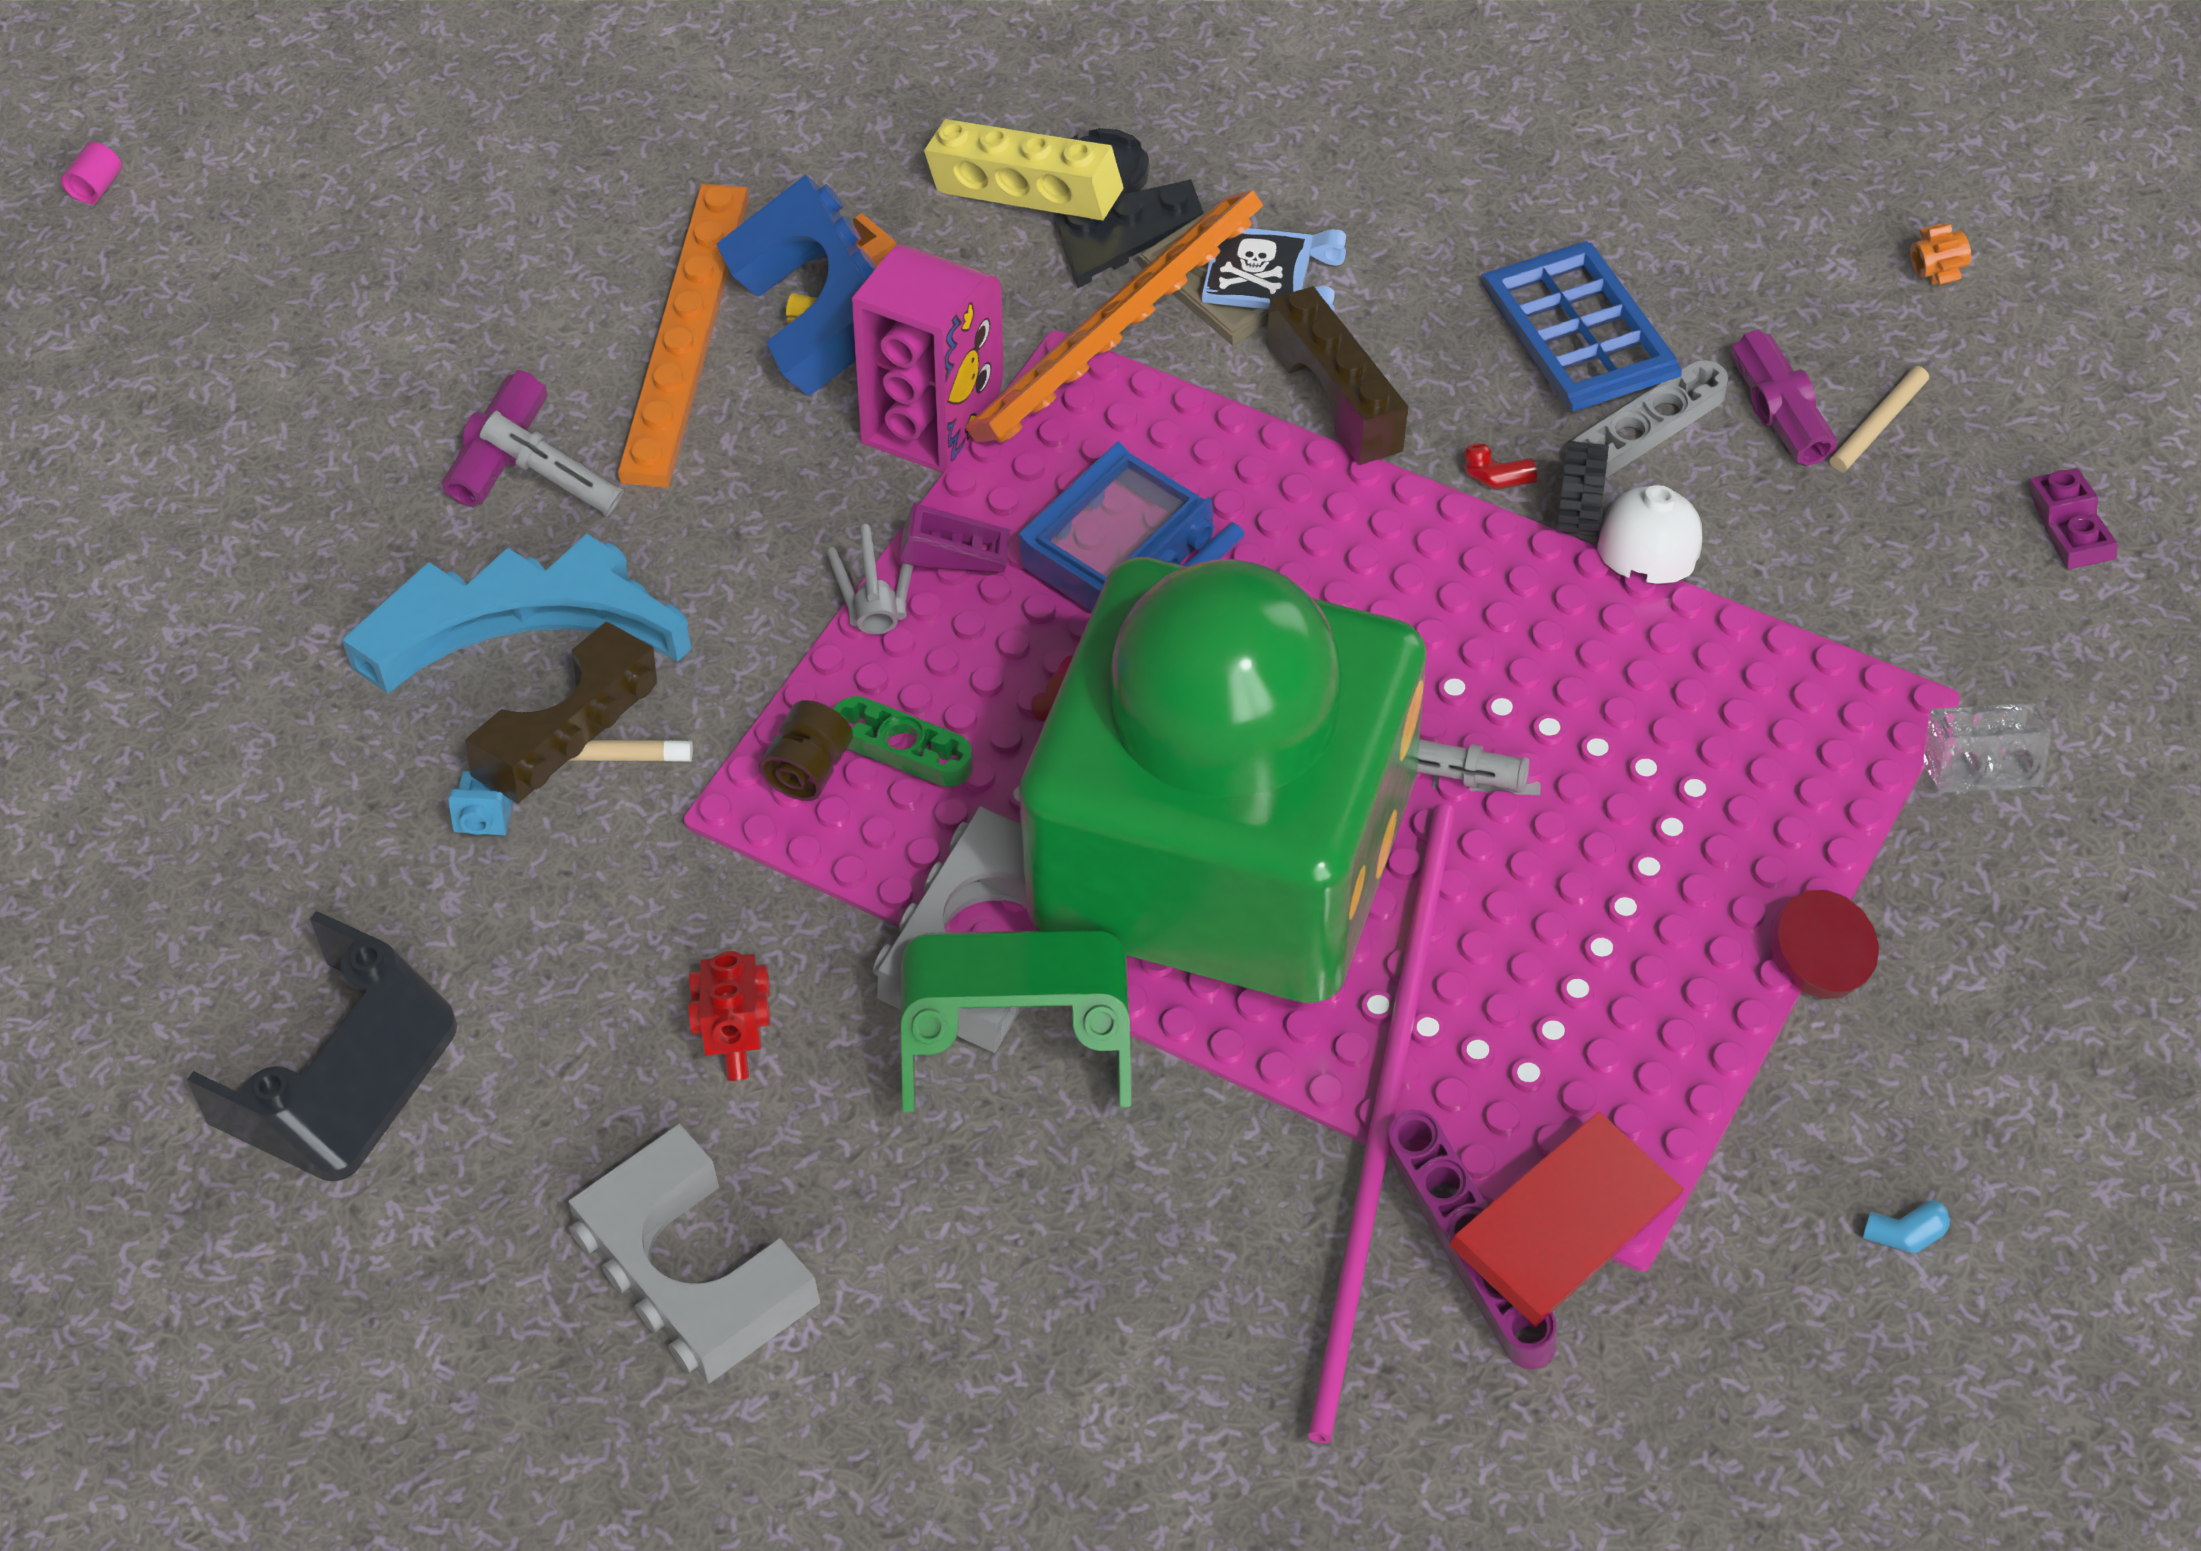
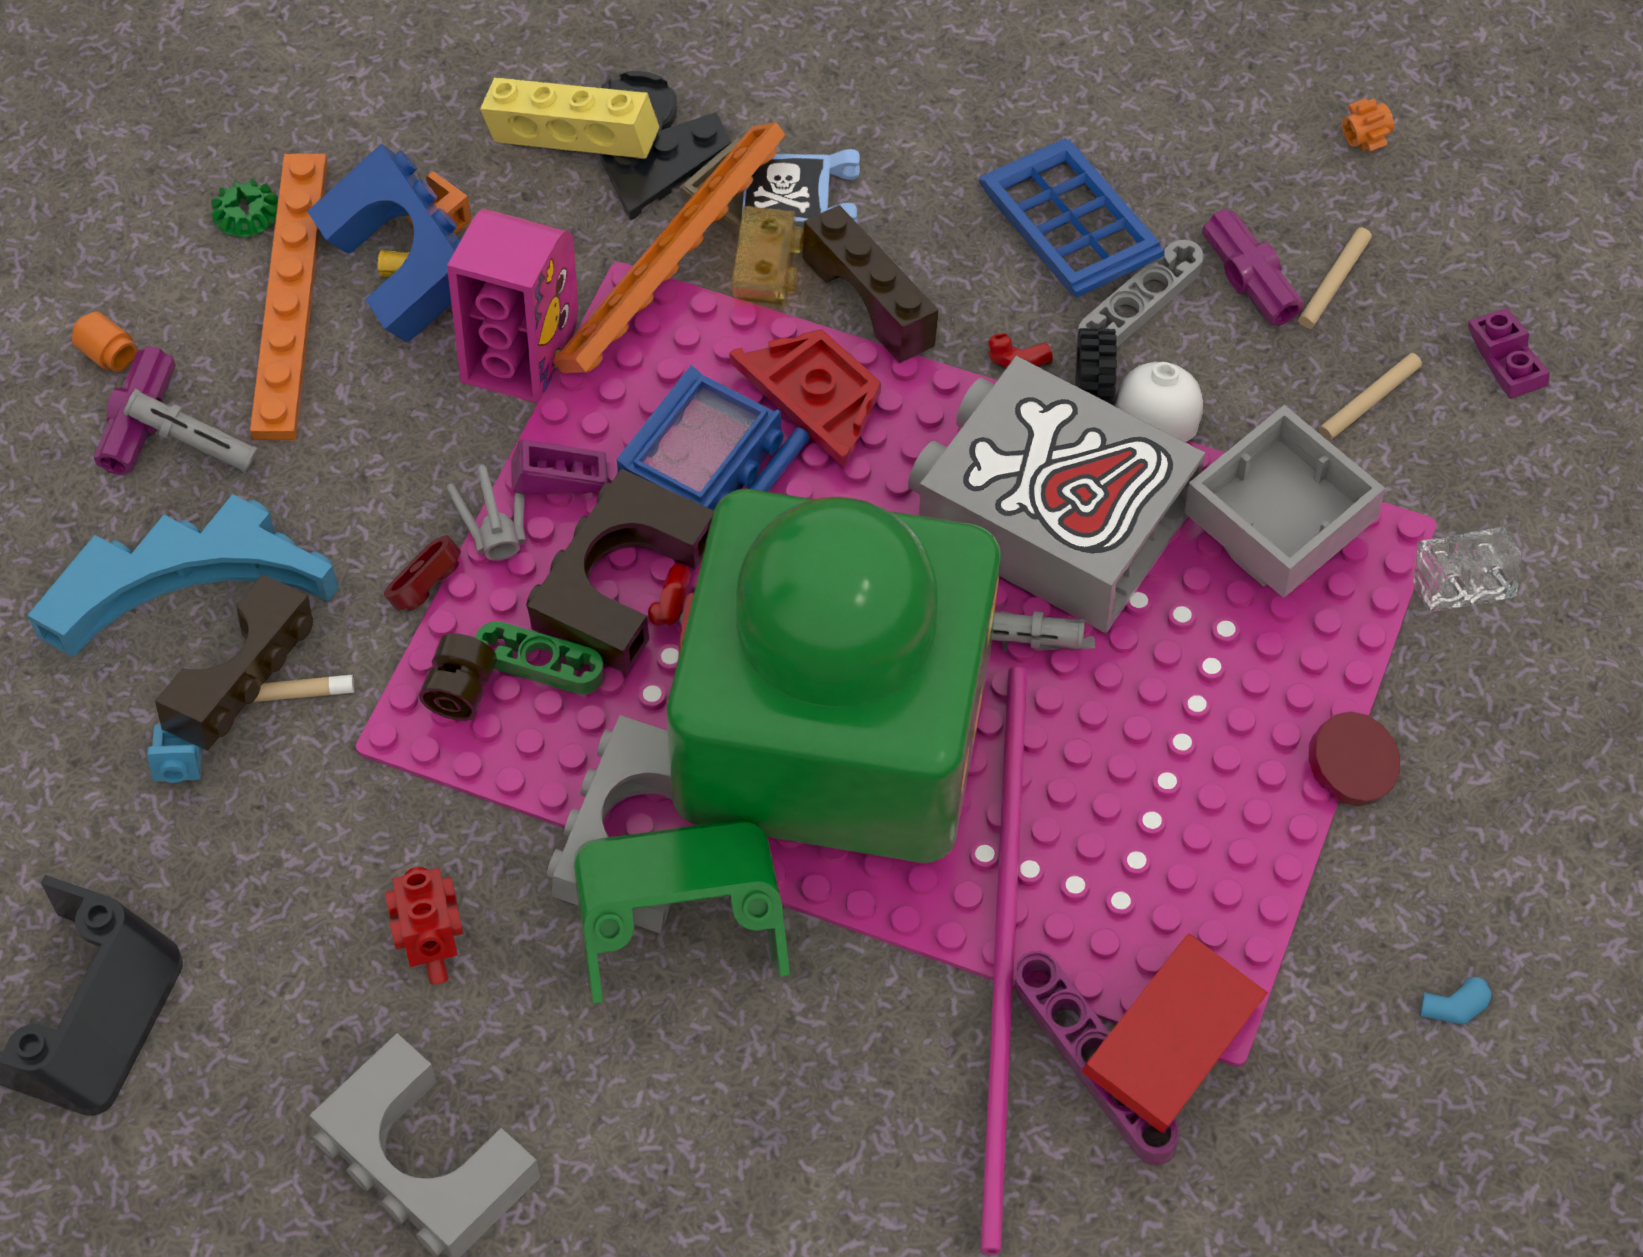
camera: 10 degrees left, 5 degrees up
(472, 363) = (103, 341): none -> orange brick
(635, 250) = (233, 221): none -> green gear
(801, 629) = (430, 565): none -> dark red plate
(1021, 598) = (625, 516): none -> dark brown arch
(1223, 335) = (765, 256): none -> clear yellow brick
(1257, 480) = (815, 387): none -> red wing
(1525, 613) = (1063, 486): none -> light grey brick
(1778, 649) = (1283, 501): none -> light grey container
(1902, 552) = (1370, 396): none -> tan bar

